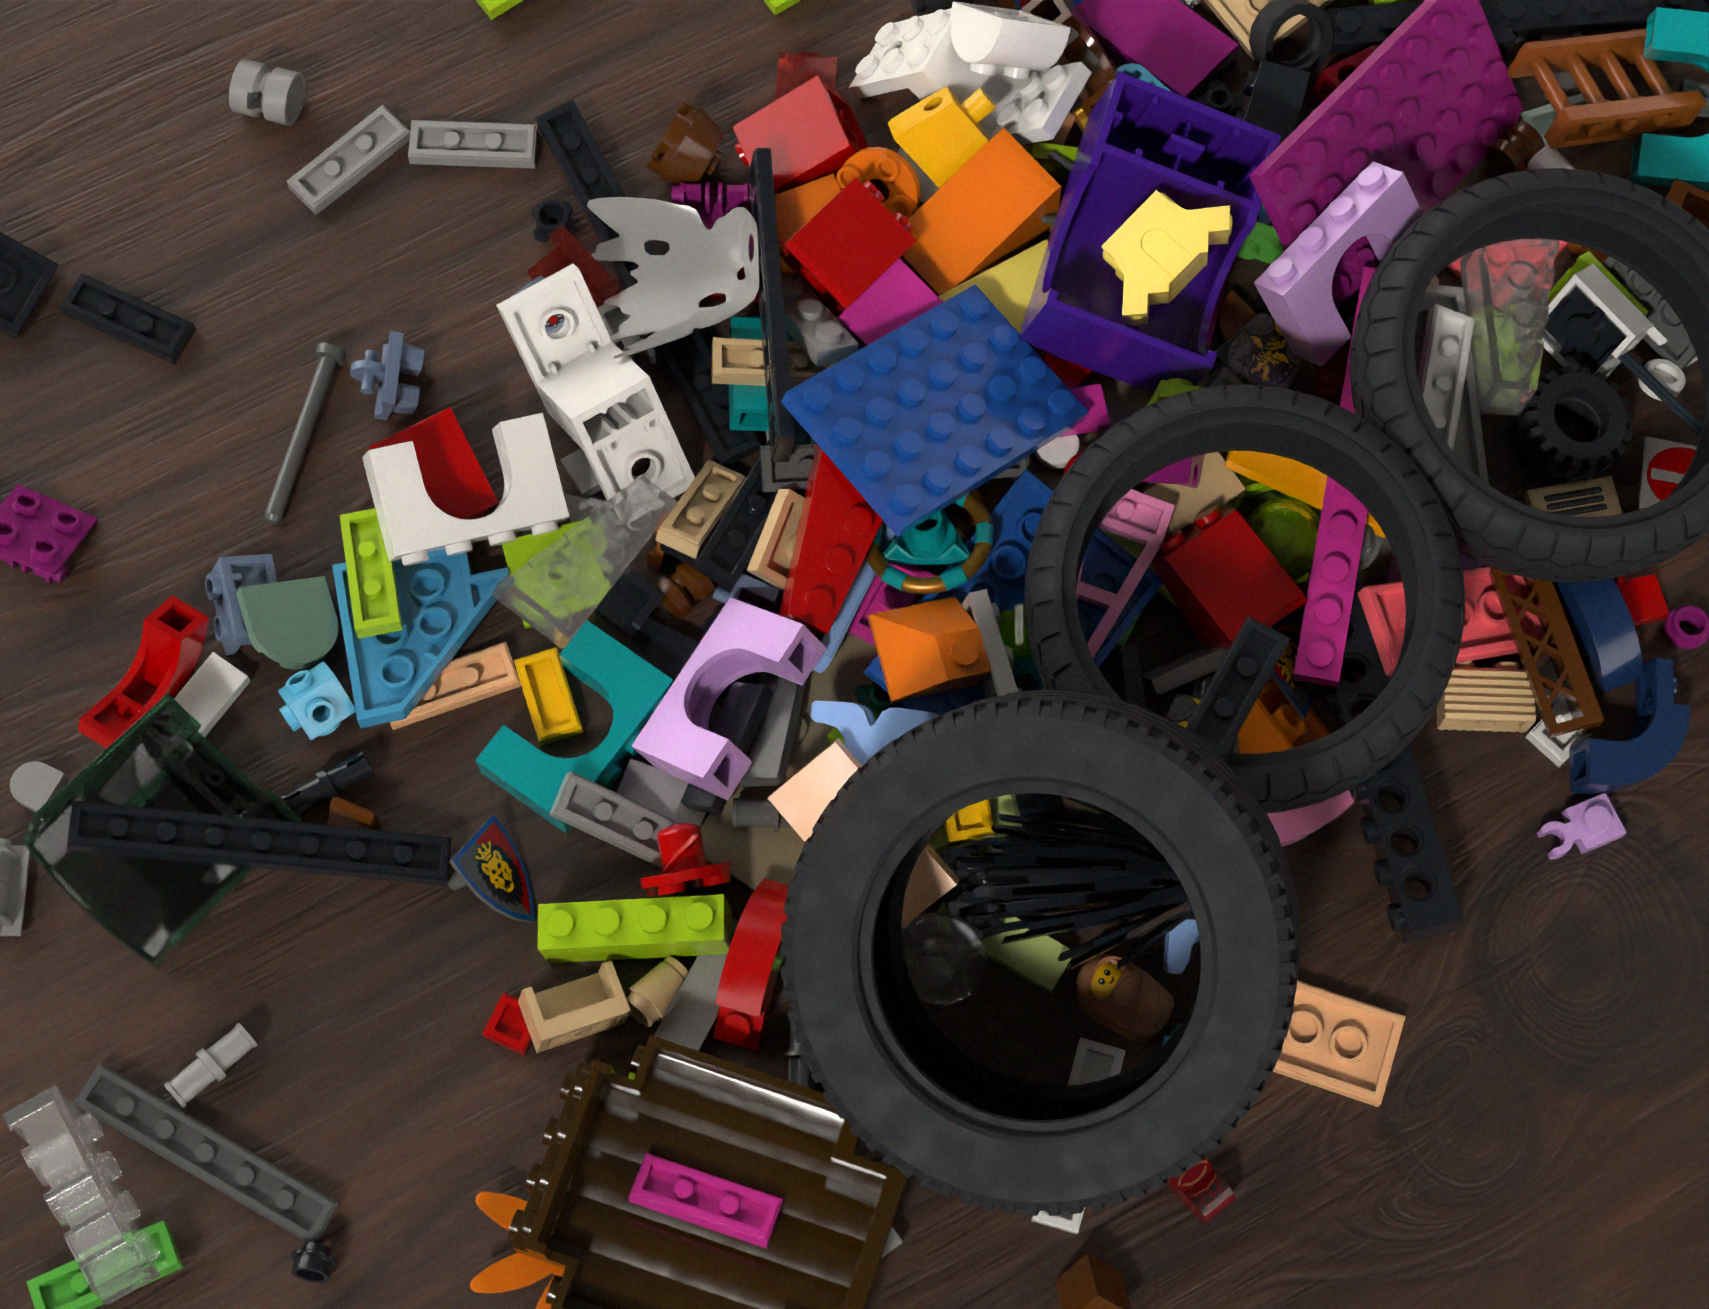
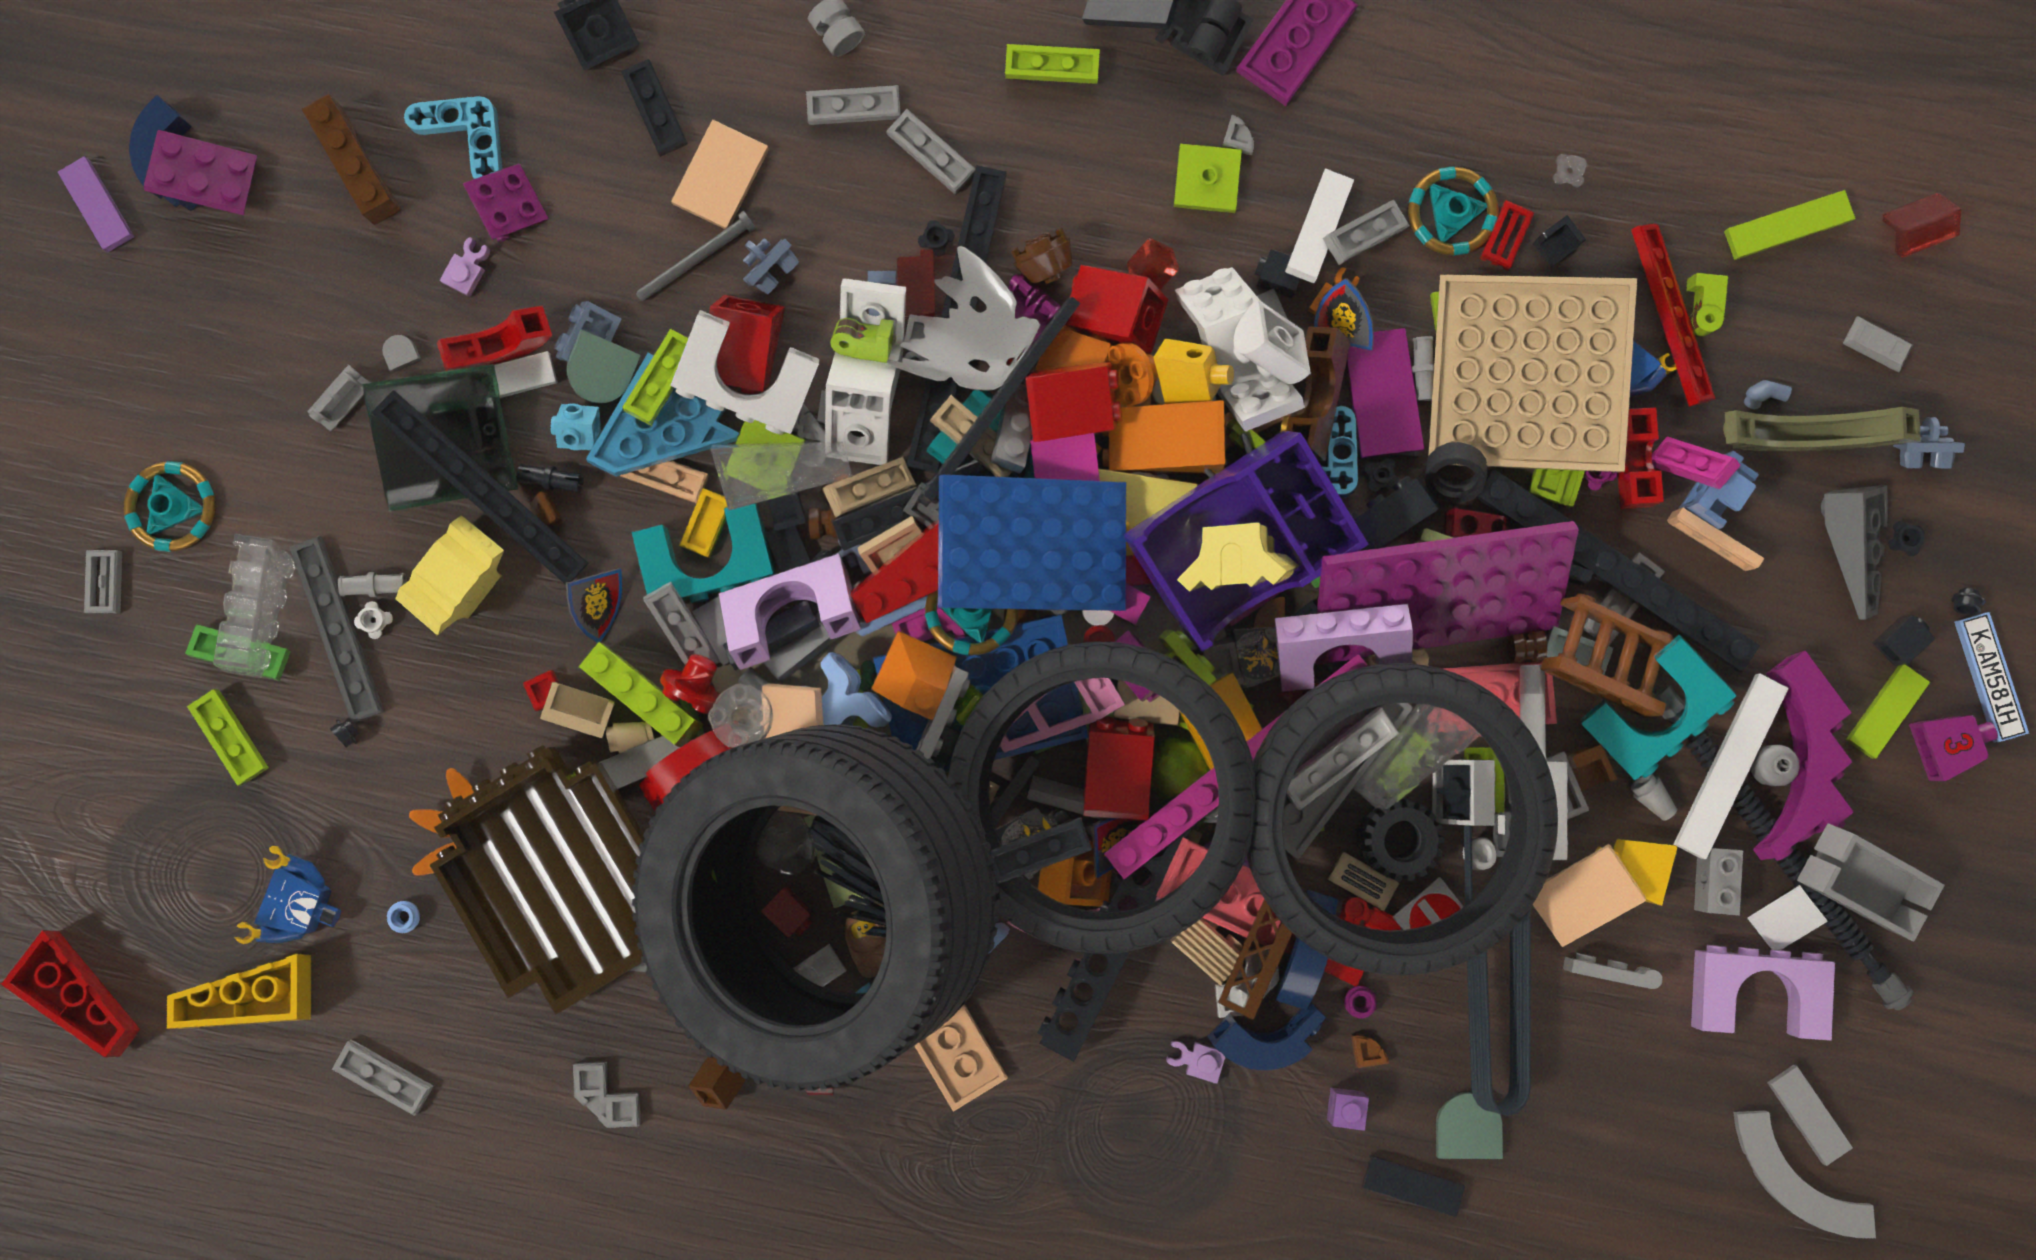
camera: 45 degrees right, 15 degrees up
(45, 644) = (463, 272): none -> lavender plate
(231, 1099) = (363, 620): none -> white plate
(259, 331) = (720, 174): none -> light nougat tile
(302, 970) = (452, 576): none -> light yellow slope
(569, 358) = (863, 340): none -> lime leg
(705, 1200) = (557, 871): dark pink tile -> none
(767, 847) = (741, 715): none -> clear plate
(1007, 1036) = (788, 913): none -> red brick

